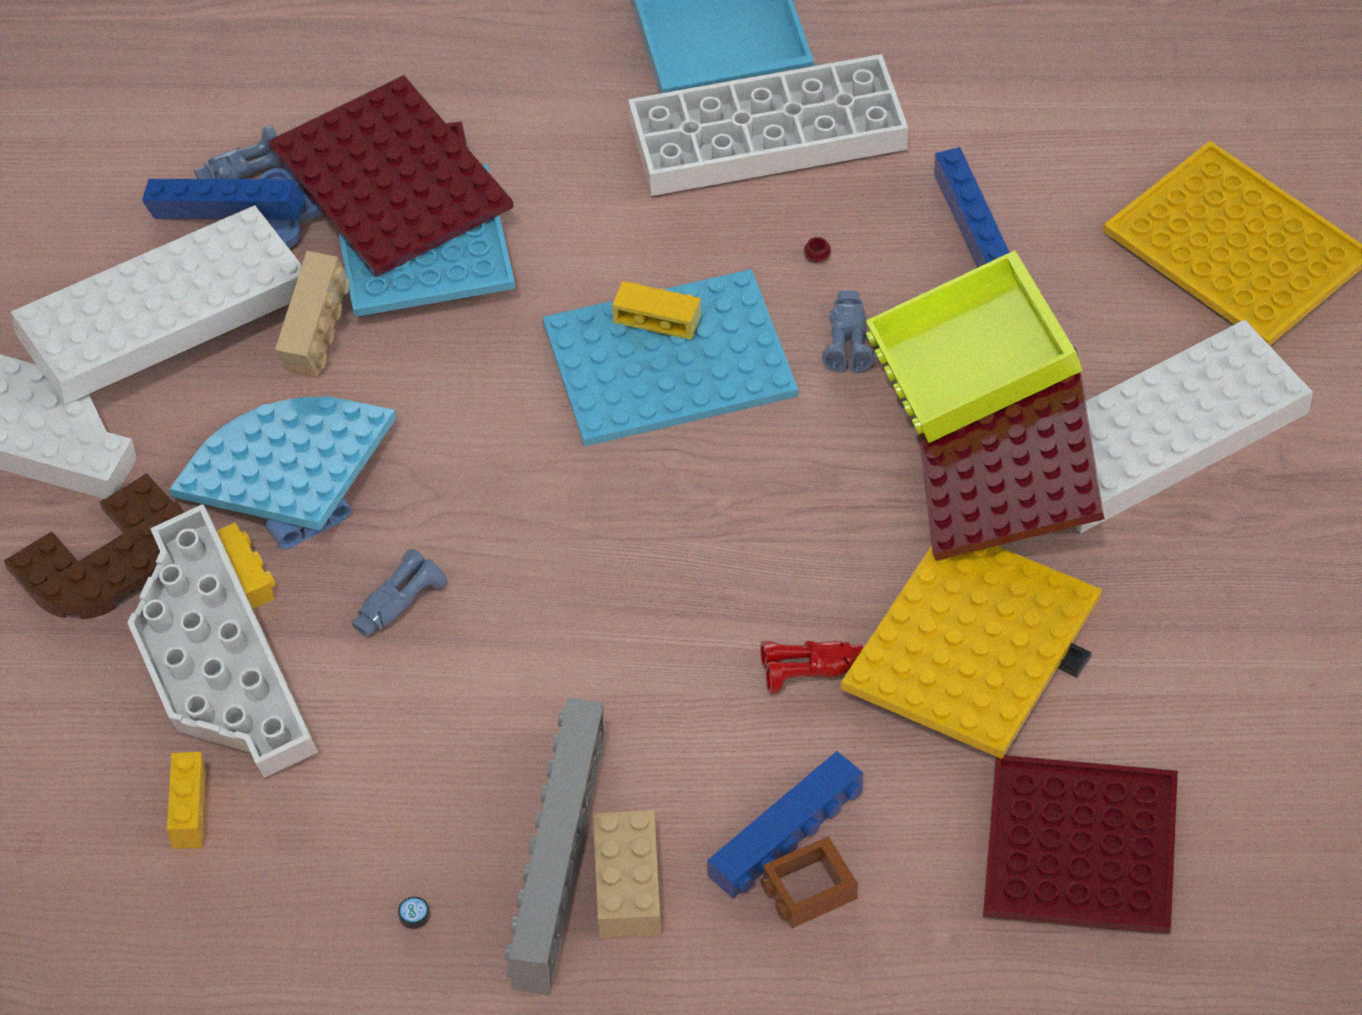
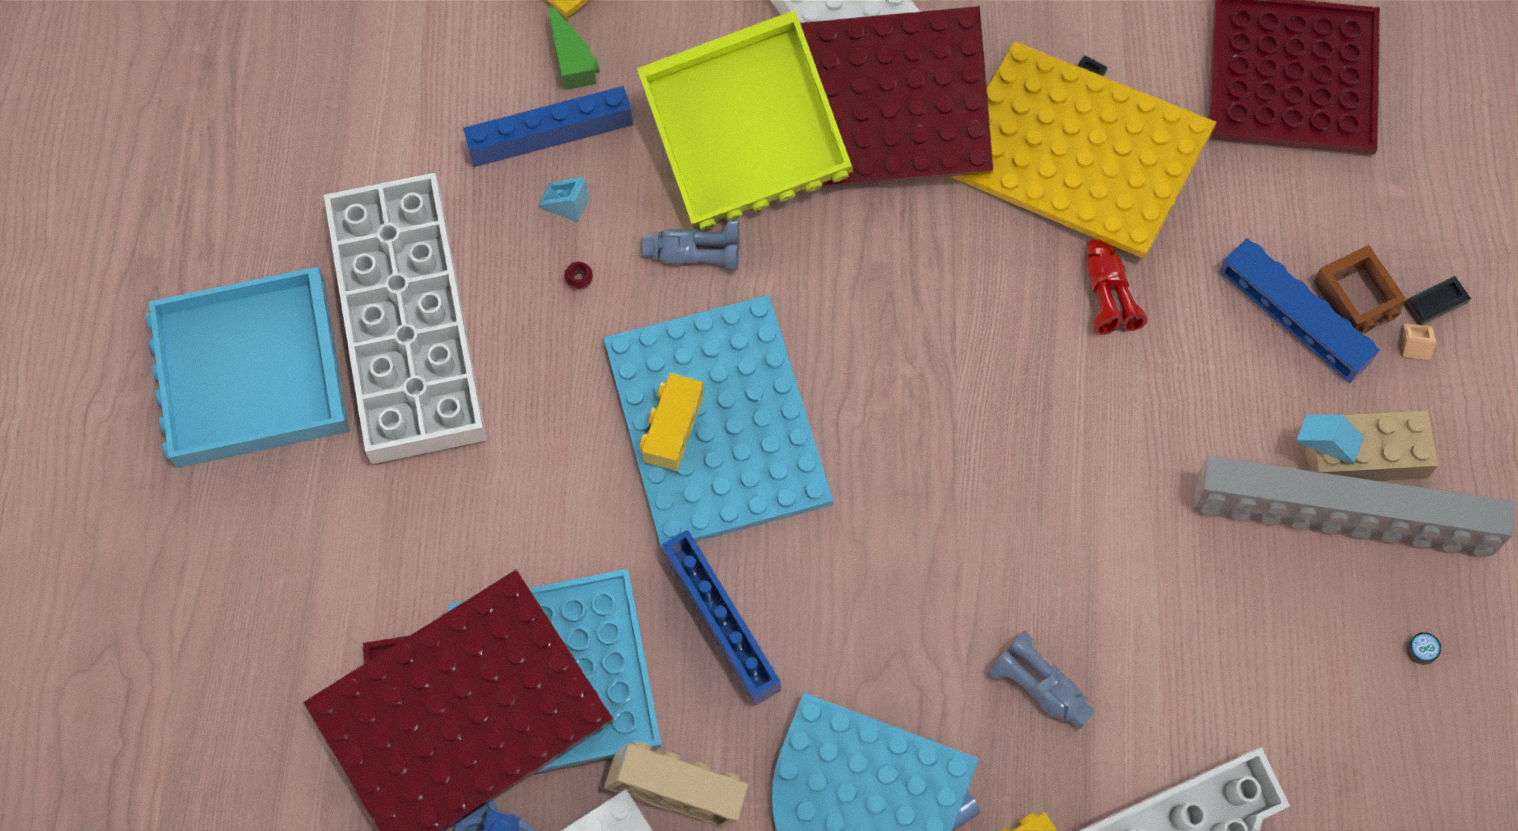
camera: 90 degrees left, 15 degrees up
(469, 353) = (721, 617): none -> blue brick
(622, 816) = (1331, 436): none -> medium azure slope
(755, 938) = (1418, 341): none -> light nougat slope
(803, 961) = (1437, 300): none -> black tile
(895, 238) = (566, 198): none -> medium azure slope
(1058, 231) = (573, 54): none -> bright green slope

